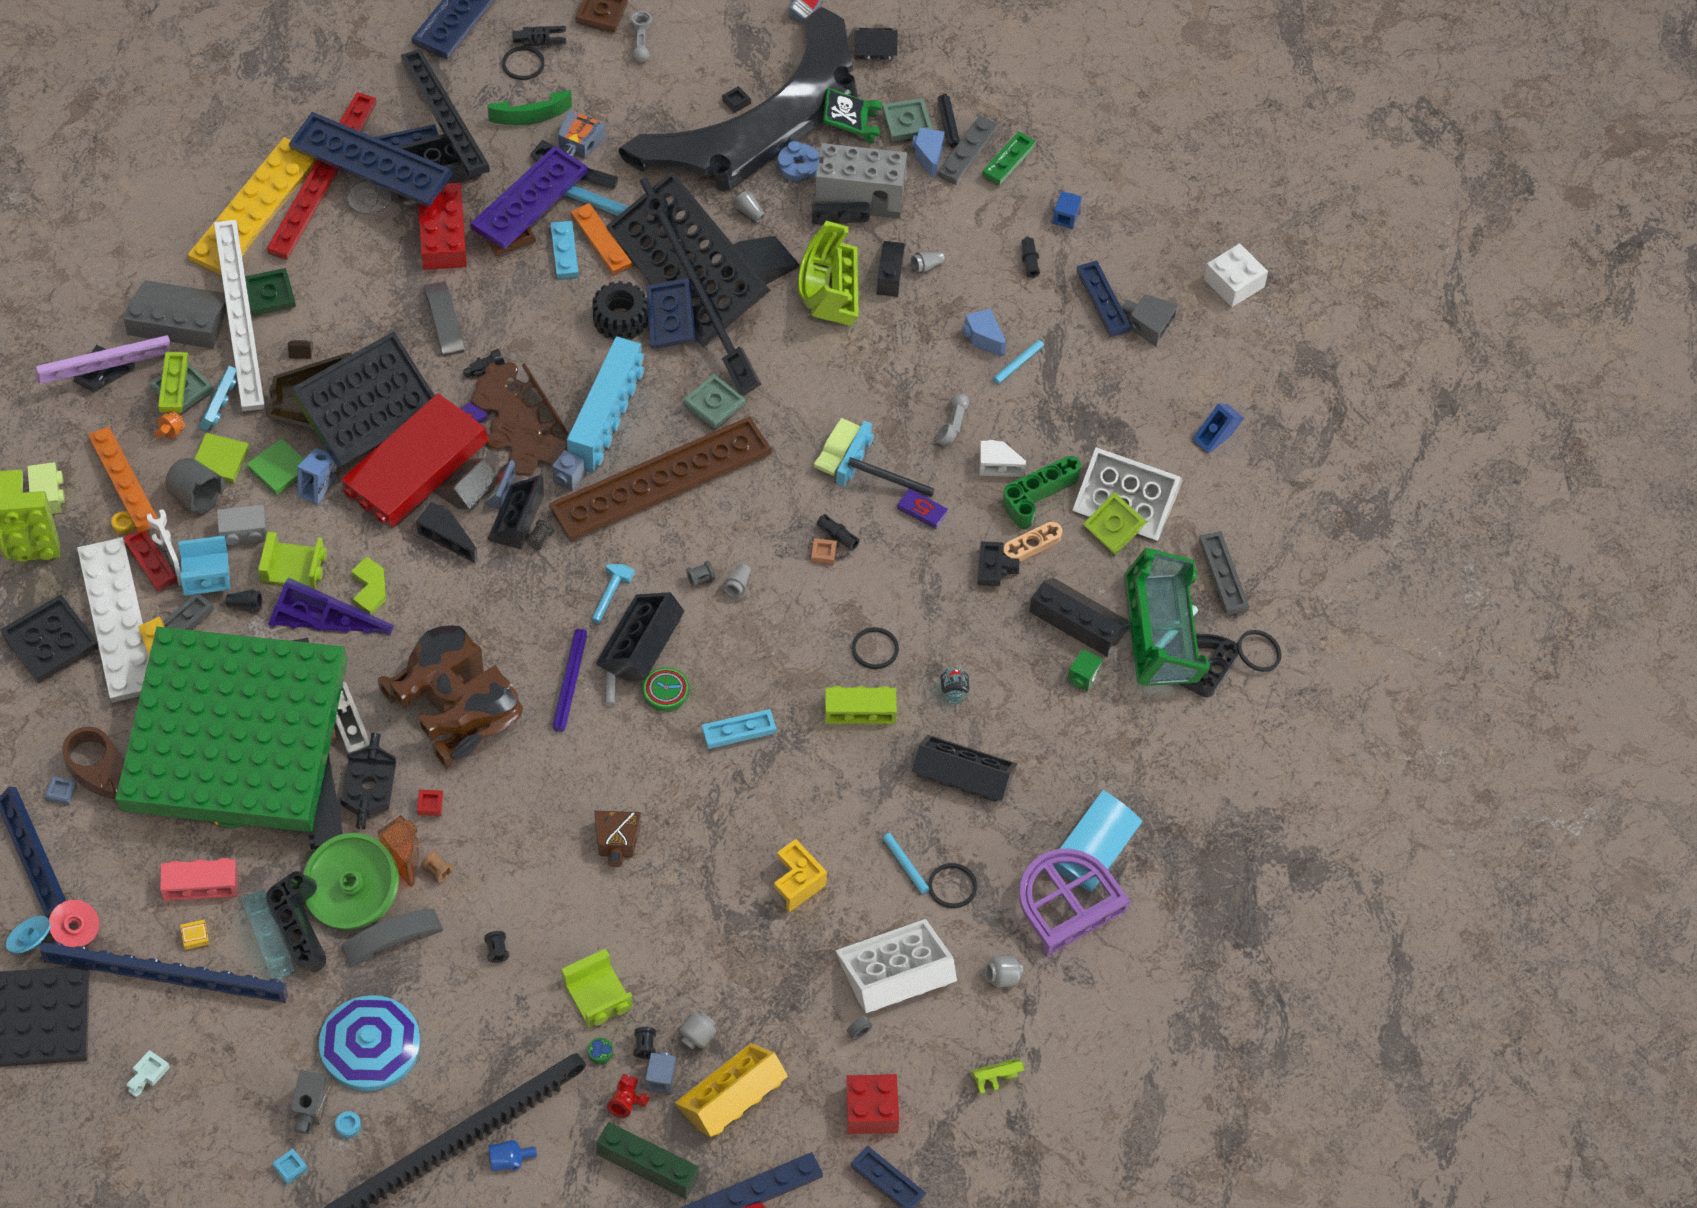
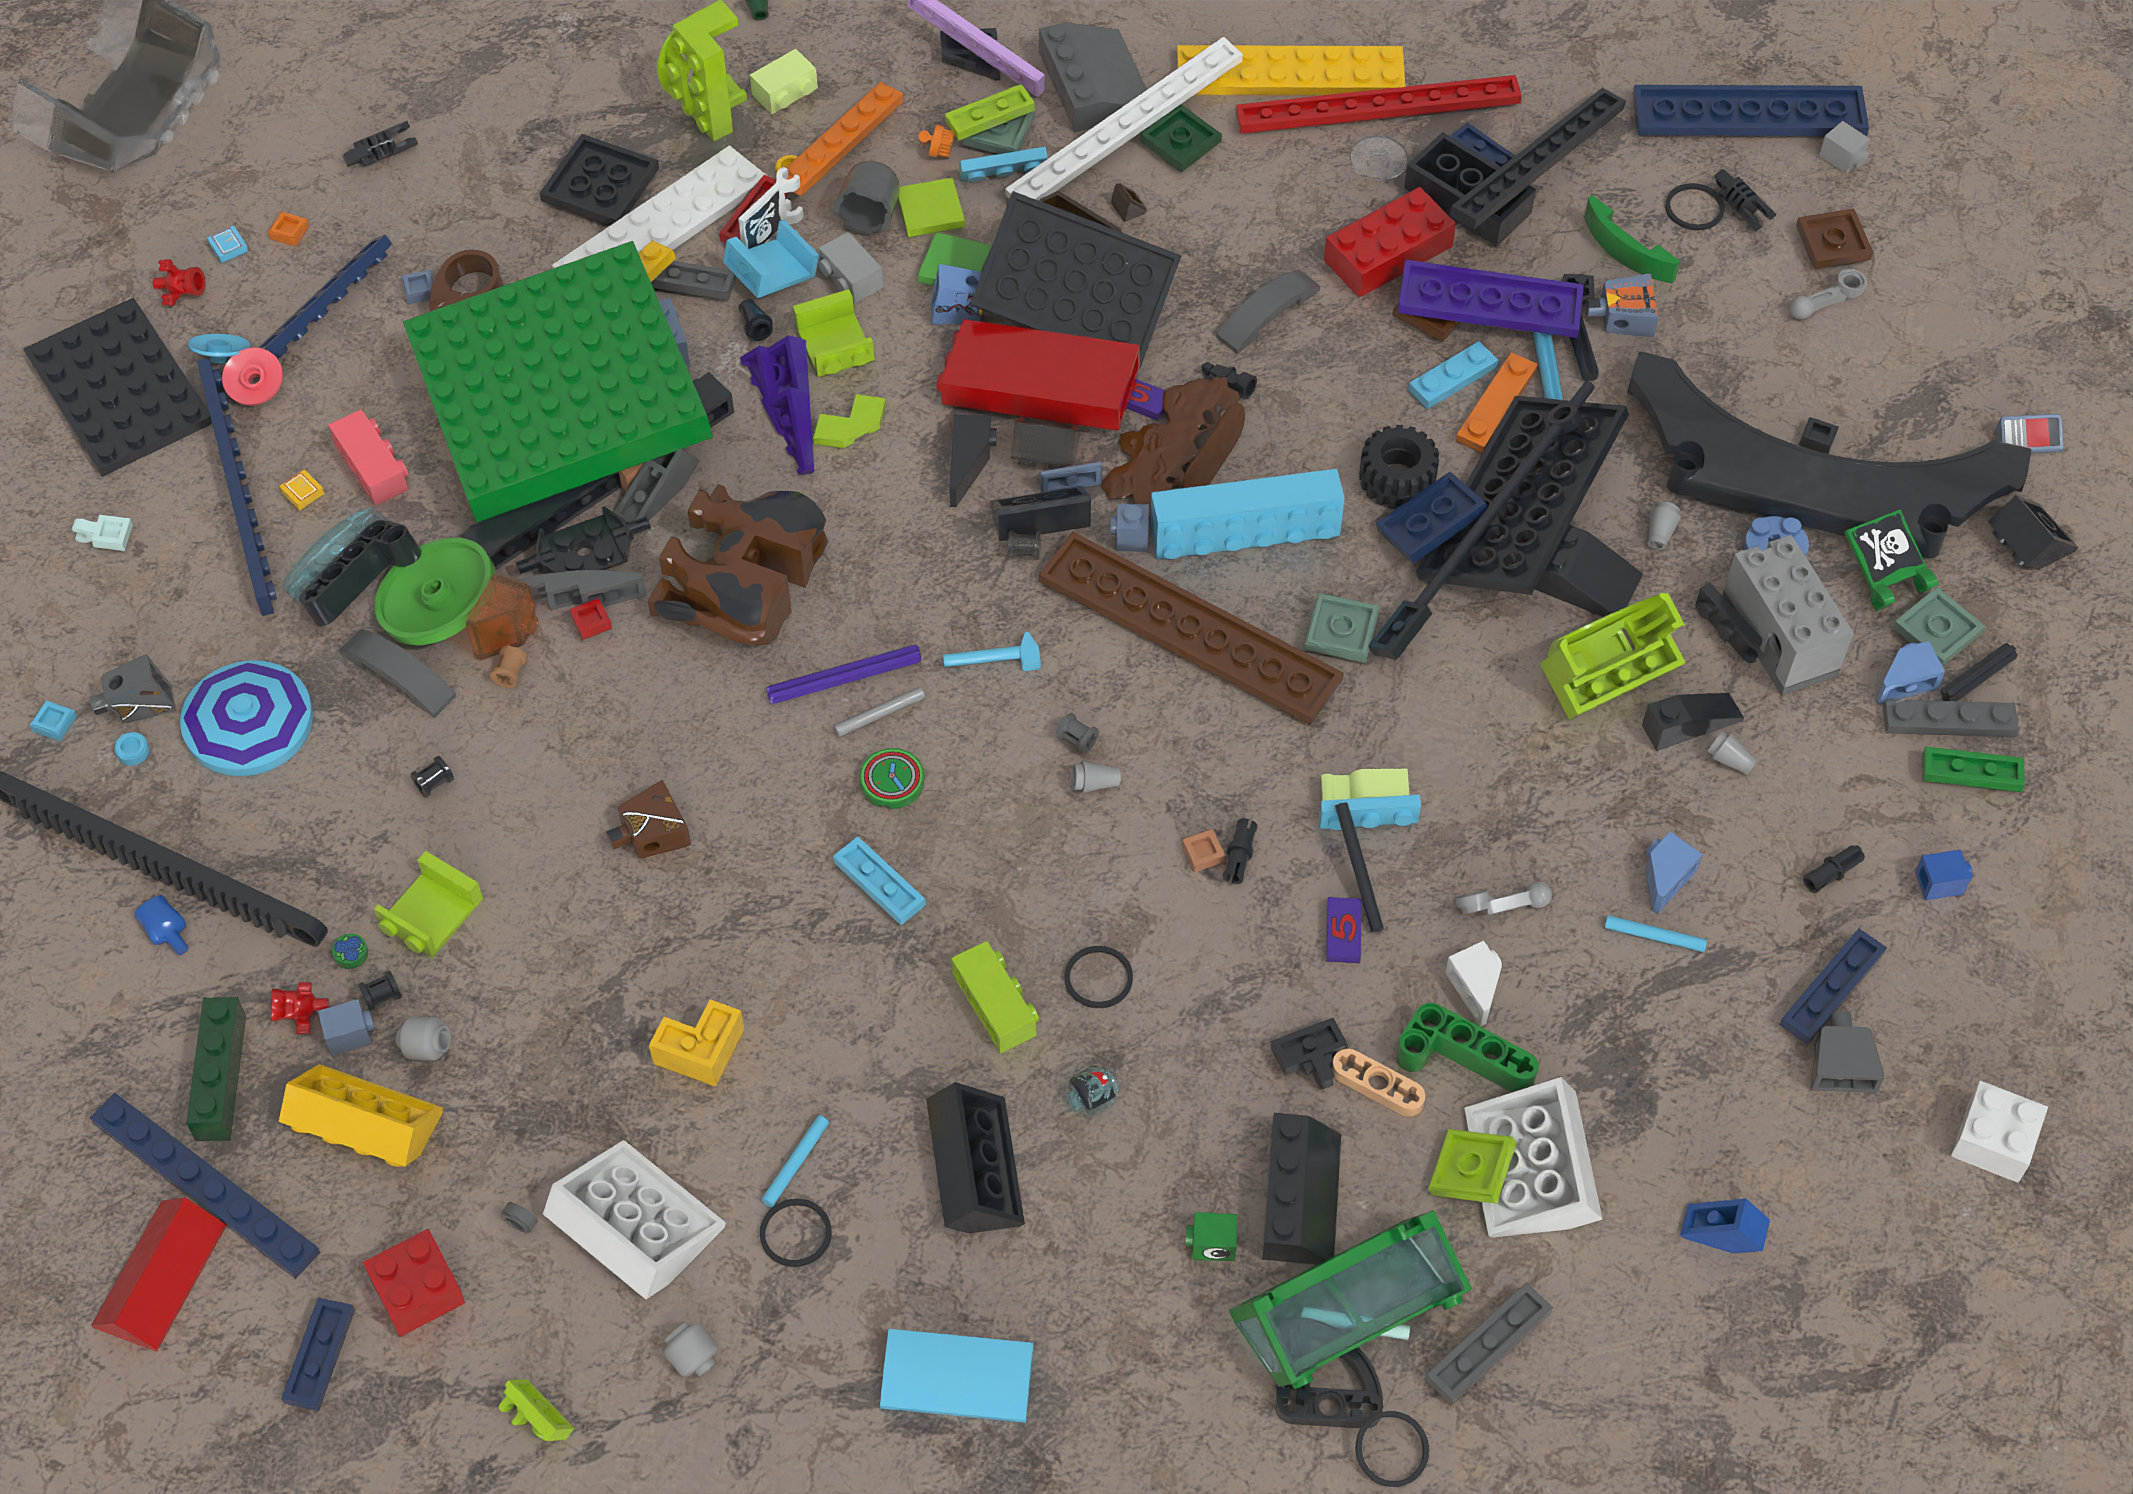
camera: 65 degrees right, 0 degrees up
(370, 159) = (1415, 125): dark blue plate -> none
(404, 793) = (582, 586): none -> dark grey slope
(641, 636) = (943, 713): black slope -> none
(1085, 920) = (817, 1412): medium lavender window -> none

